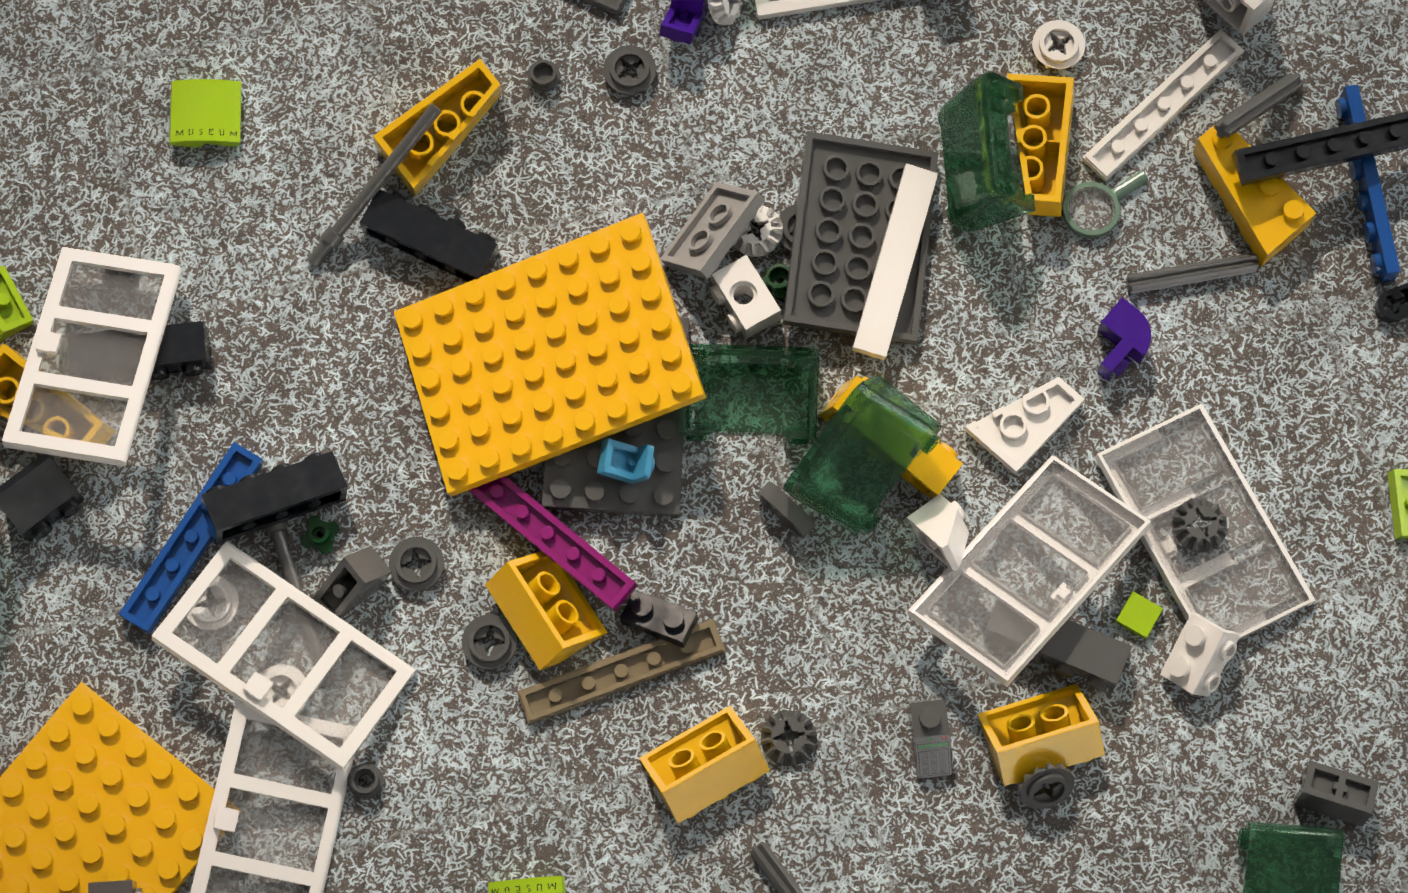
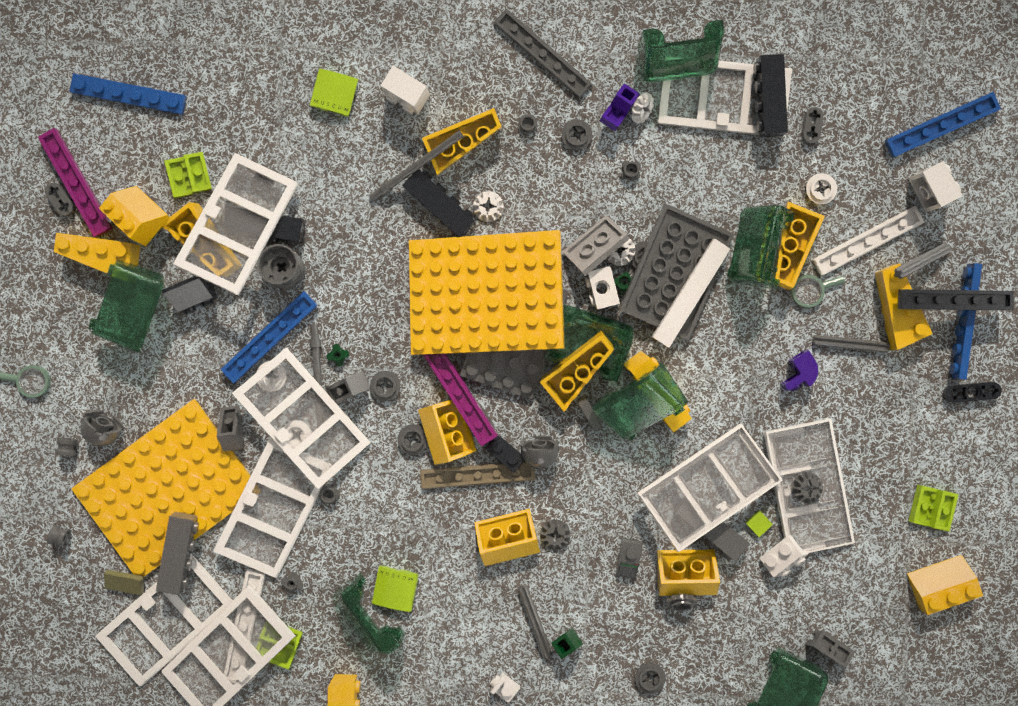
camera: 15 degrees right, 15 degrees up
(161, 713) = (230, 428): none -> dark grey slope
(181, 392) = (273, 259): none -> dark grey wheel
(273, 496) = (316, 330): black brick -> none
(325, 74) = (405, 90): none -> white brick
(527, 229) = (481, 212): none -> white gear
(625, 461) = (511, 366): dark azure bracket -> none
(718, 597) = (539, 452): none -> dark grey cylinder
(733, 92) = (631, 165): none -> dark grey plate
(736, 444) = (576, 370): none -> yellow wedge
(941, 530) = (669, 451): white slope -> none
(1025, 425) = (733, 403): white wing -> none

